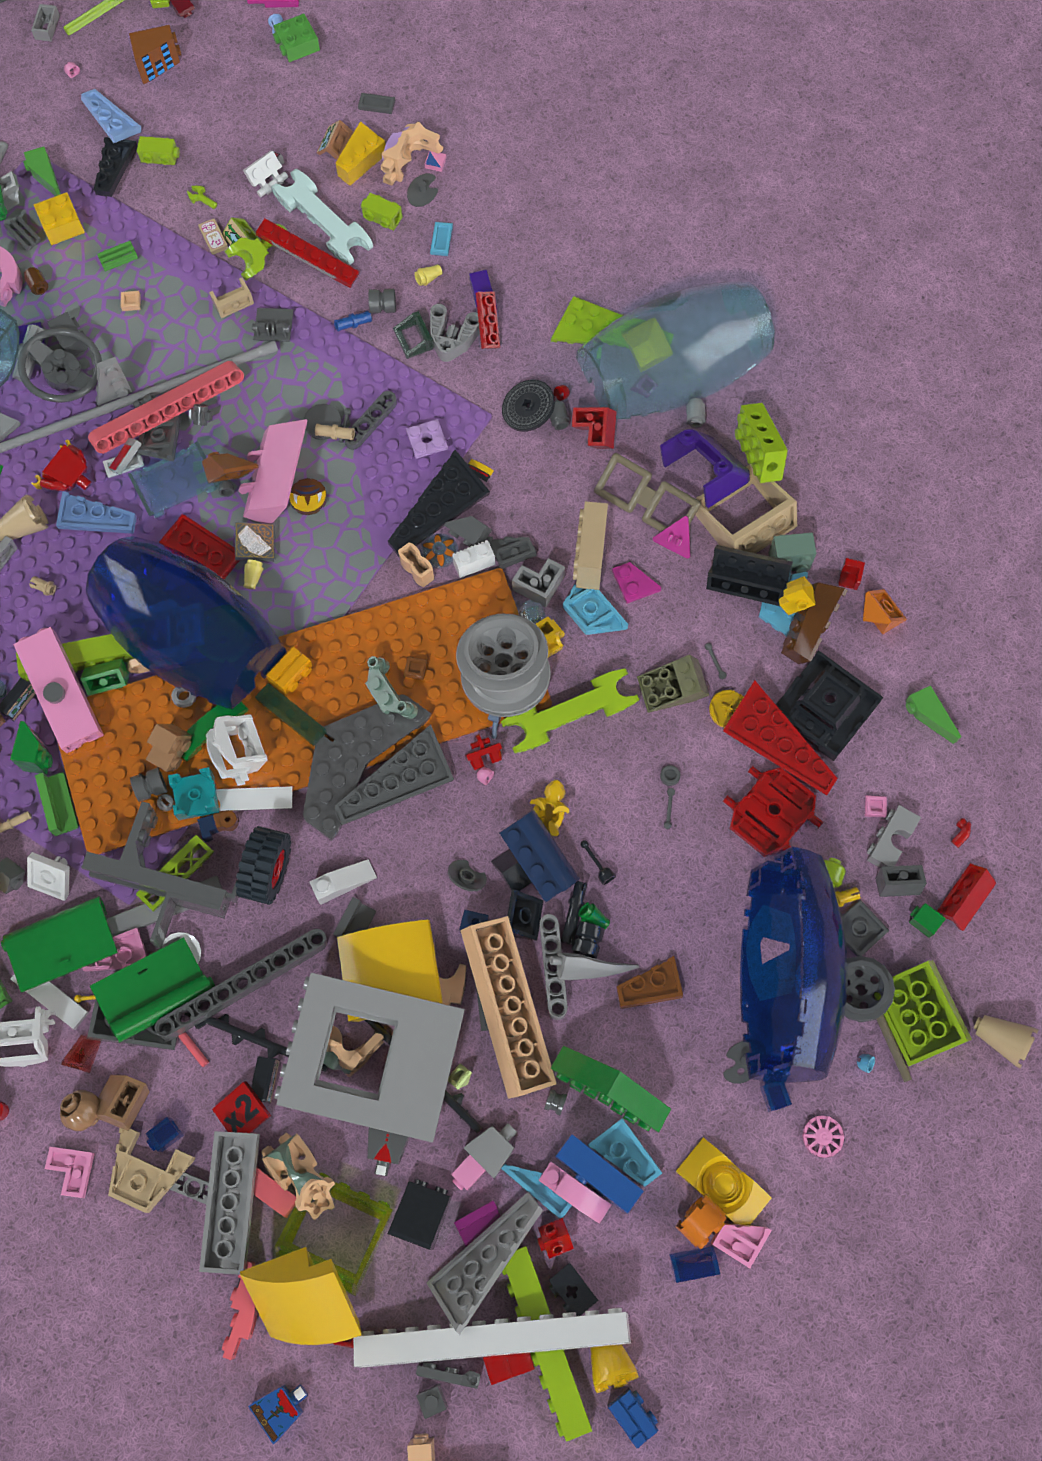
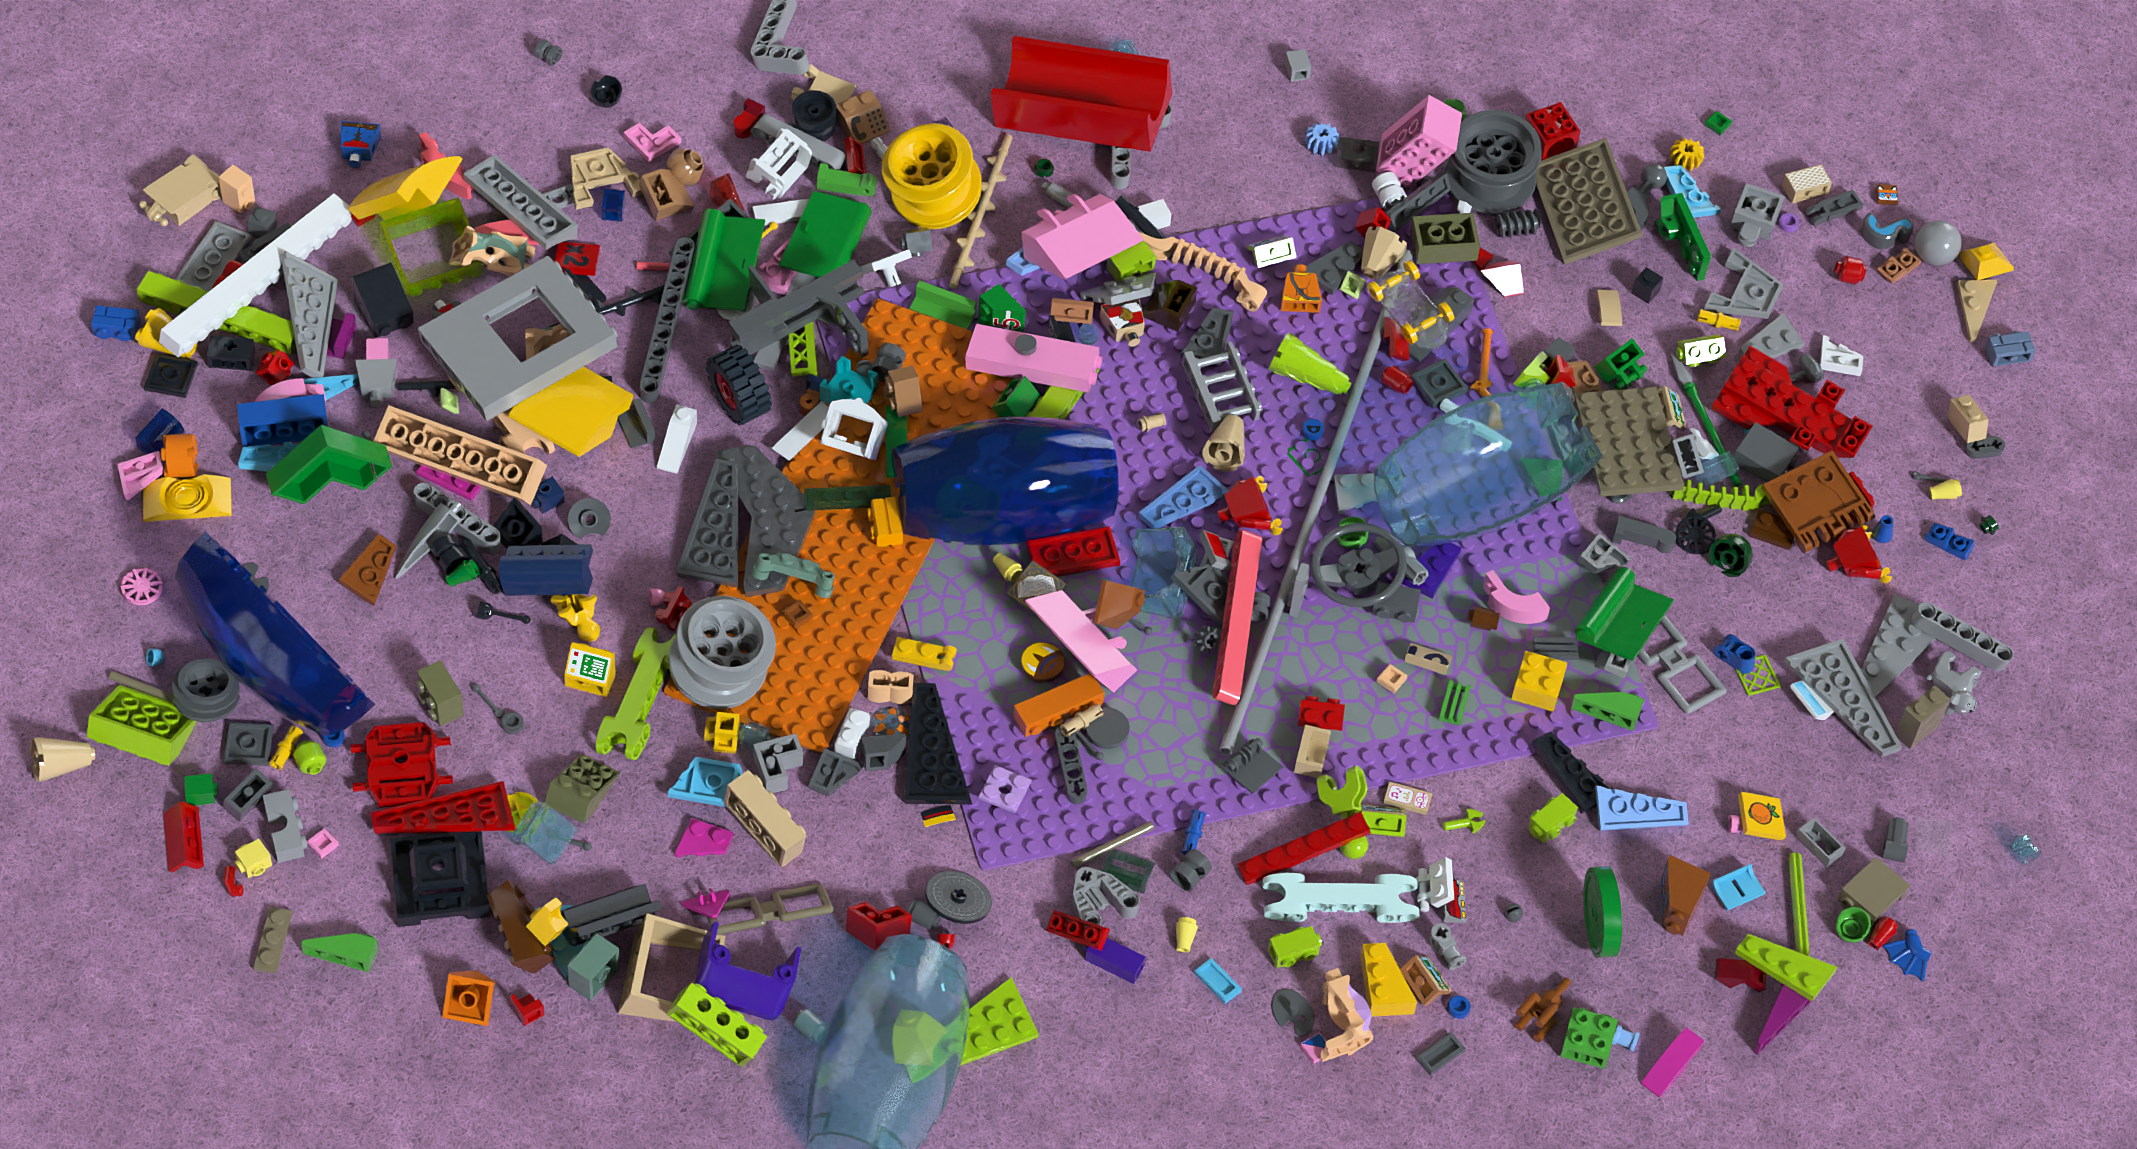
camera: 125 degrees right, 15 degrees down
(28, 399) = (1353, 539): none -> bright green hair
(45, 1341) = (546, 51): none -> dark grey wheel
(46, 1260) = (605, 88): none -> black hair
(54, 58) = (1761, 816): none -> yellow tile
(95, 291) = (1428, 658): none -> tan slope
(110, 39) = (1746, 883): none -> medium azure piece
(195, 315) = (1321, 714): none -> red bracket
(209, 64) = (1602, 911): none -> green brick
(241, 134) = (1515, 915): none -> dark grey hinge
(297, 71) = (1542, 1008): none -> dark orange plant
(301, 144) = (1446, 946): none -> light grey connector
(336, 114) = (1458, 1007): none -> blue tile
(336, 458) = (1057, 705): none -> orange brick
(370, 570) = (924, 654): none -> yellow plate
(403, 357) = (1088, 856): none -> dark tan bar
(498, 1409) = (213, 254): none -> light grey tile
(587, 755) = (590, 669): none -> slope
(642, 1318) = (170, 375): none -> black tile
(703, 831) = (439, 693): none -> olive brick
(733, 674) = (544, 832): none -> clear light blue bracket
(935, 834) = (252, 859): none -> light yellow brick
(969, 767) = (273, 940): none -> dark tan plate

